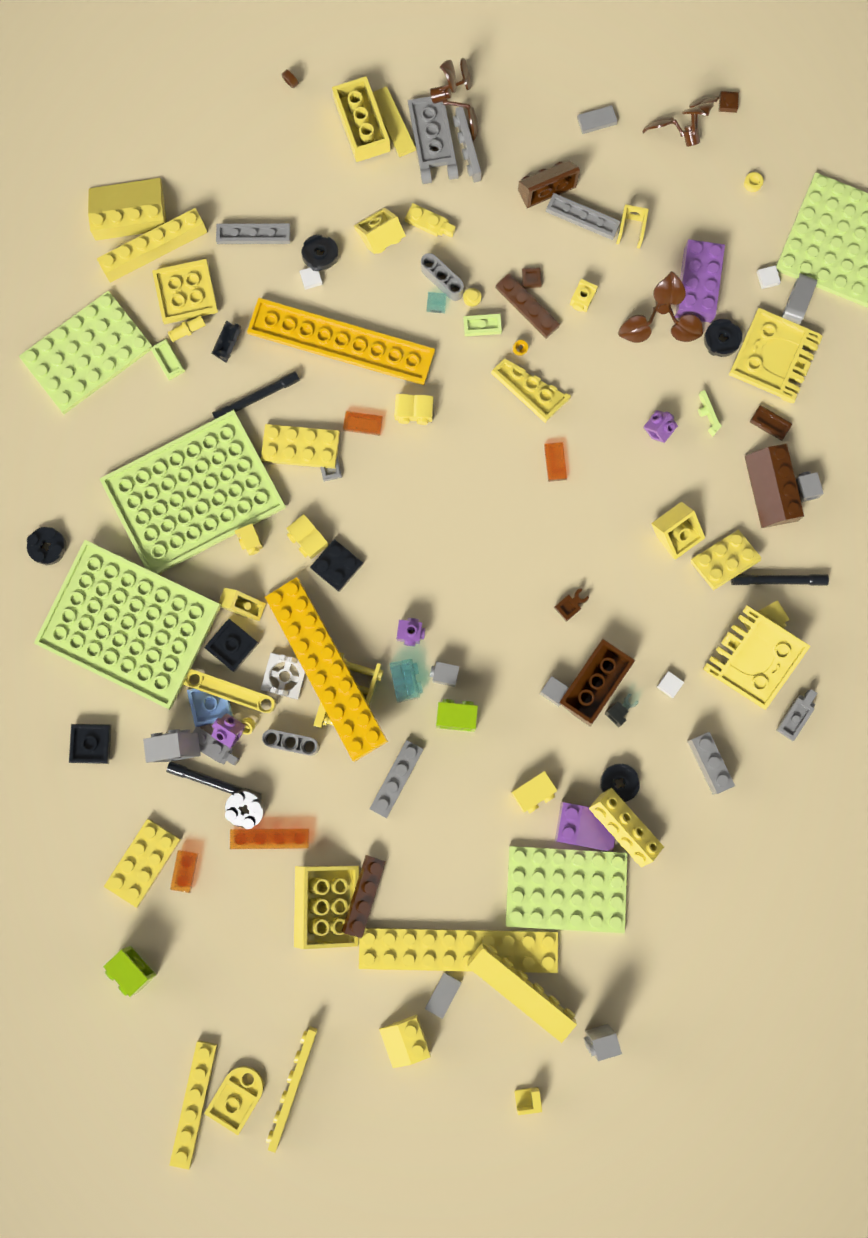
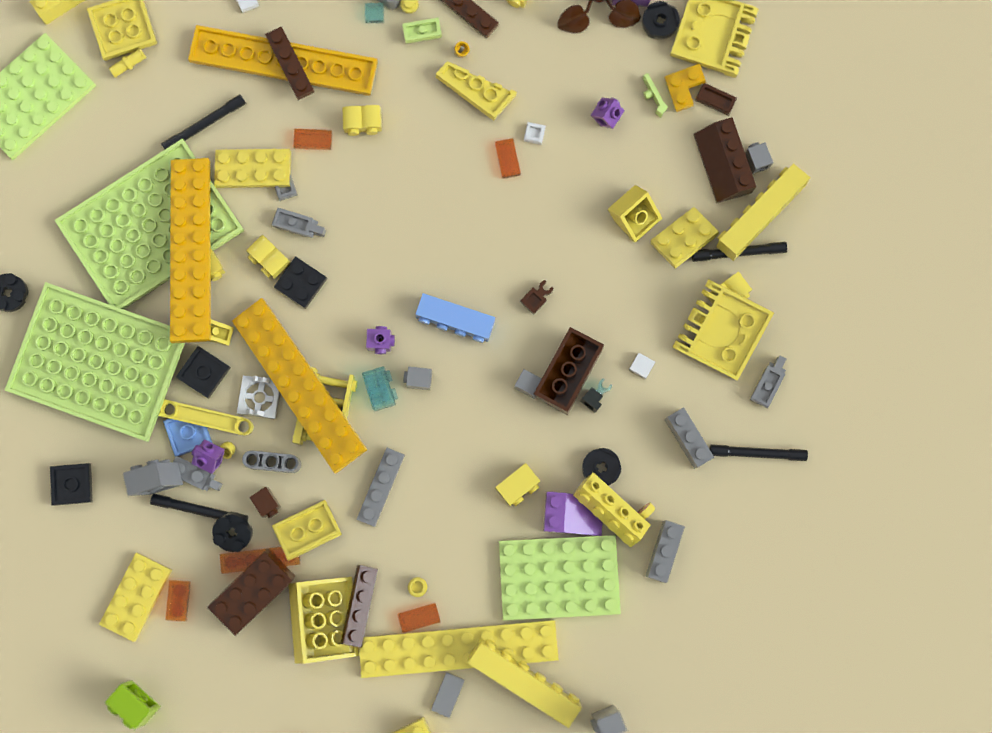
camera: 10 degrees left, 0 degrees up
(167, 359) = (111, 95): yellowish green tile -> none
(226, 341) = (168, 71): black hinge -> none
(231, 523) = (190, 251): none -> yellow plate
(258, 871) = (251, 591): none -> reddish brown brick
(280, 783) = (265, 503): none -> reddish brown brick
(318, 814) = (306, 530): none -> light yellow tile
(339, 506) = (297, 223): none -> light grey hinge
(347, 345) = (289, 63): none -> reddish brown plate
(422, 914) = (419, 617): none -> clear orange tile
(423, 883) = (417, 587): none -> light yellow plate
(456, 716) = (433, 418): lime brick -> none
(487, 616) = (455, 317): none -> light blue brick
(584, 439) = (534, 133): none -> white tile
(661, 831) = (646, 510): none -> light yellow tile
(675, 875) = (665, 551): none -> light grey brick
(736, 404) = (681, 82): none -> yellow plate
(808, 542) = (762, 212): none -> light yellow brick
(811, 790) = (790, 454): none -> black piece

